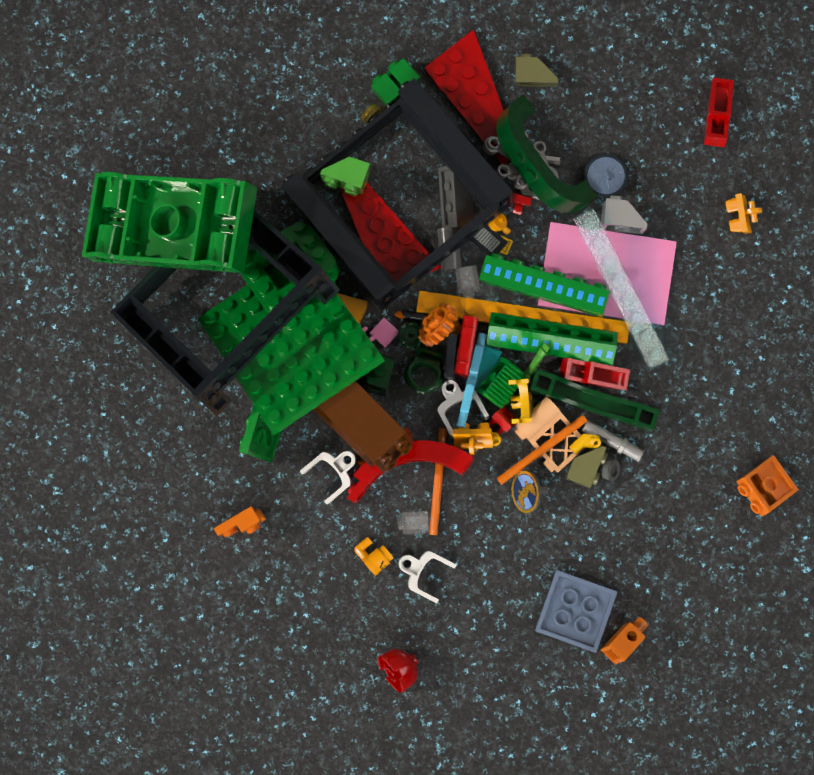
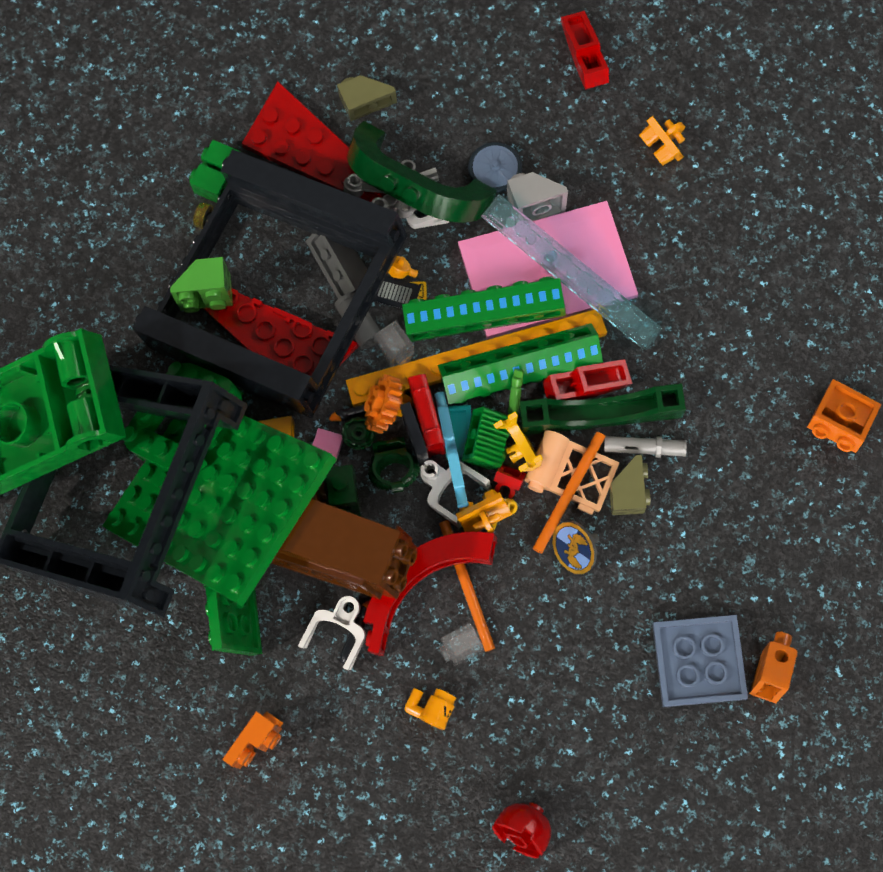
camera: 20 degrees left, 10 degrees down
(416, 567) = (487, 697): white piece -> none
(520, 202) = (414, 234): red tile -> none
(587, 441) = (615, 459): yellow arm -> none
(611, 469) = (658, 479): dark grey tile -> none

